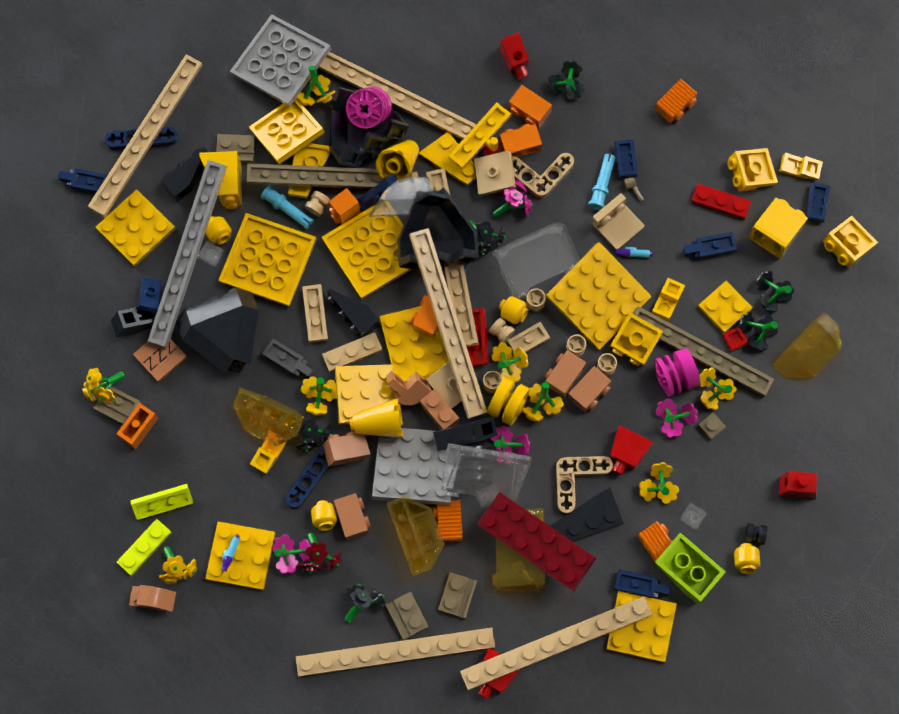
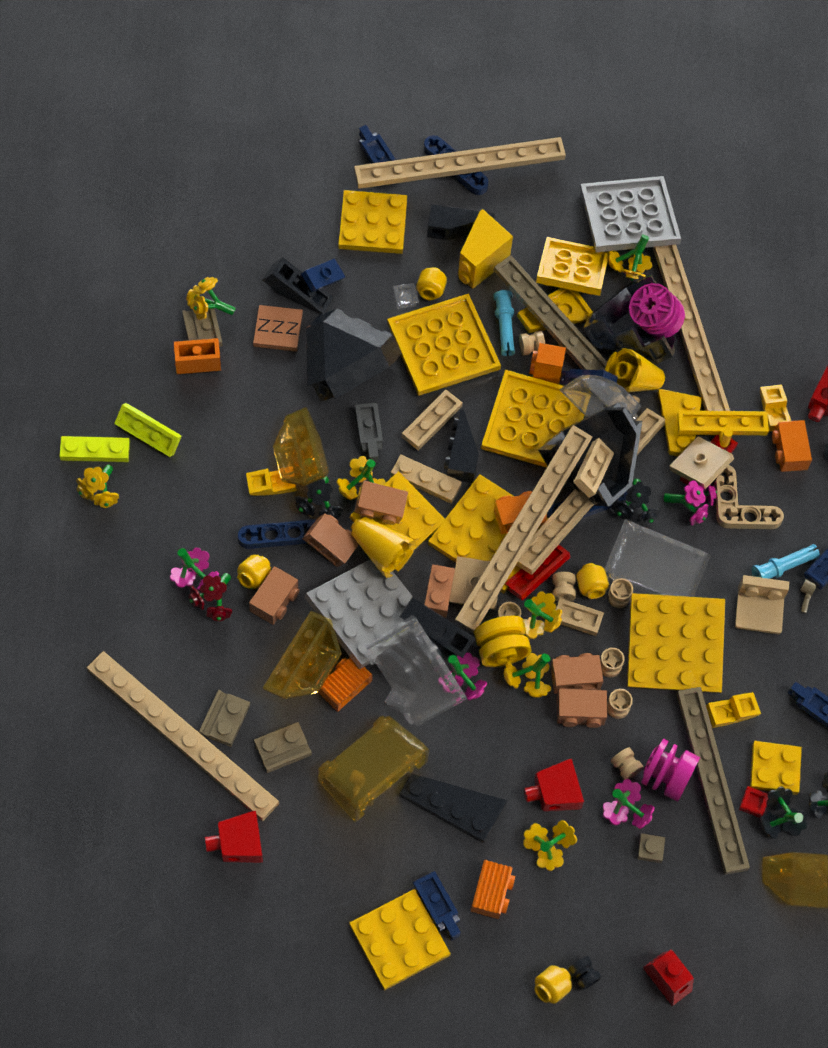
camera: 40 degrees right, 10 degrees down
(152, 598) = (53, 489): nougat brick -> none
(187, 253) = (385, 270): light grey plate -> none
(229, 554) = (147, 519): piece -> none
(241, 143) = (524, 244): dark tan plate -> none
(250, 559) = (155, 533): yellow plate -> none
(351, 397) = (381, 502): none -> nougat brick
(362, 600) = (202, 663): black plant -> none
(410, 391) = (432, 550): nougat brick -> none
(447, 245) = (593, 467): none -> tan plate
(492, 92) = (775, 403): none -> yellow slope
(521, 141) = (754, 463): orange brick -> none
(536, 541) = (390, 767): dark red plate -> none
(555, 643) = (313, 868): tan plate -> none
(569, 476) = (485, 756): tan beam -> none
(633, 252) = (747, 642): piece -> none
(636, 339) = (666, 709): yellow plate -> none
(649, 394) = (627, 763): none -> tan wheel
(689, 568) = (493, 934): lime slope -> none
(693, 516) = (549, 901): clear tile -> none
(722, 389) = (697, 830): yellow plant -> none

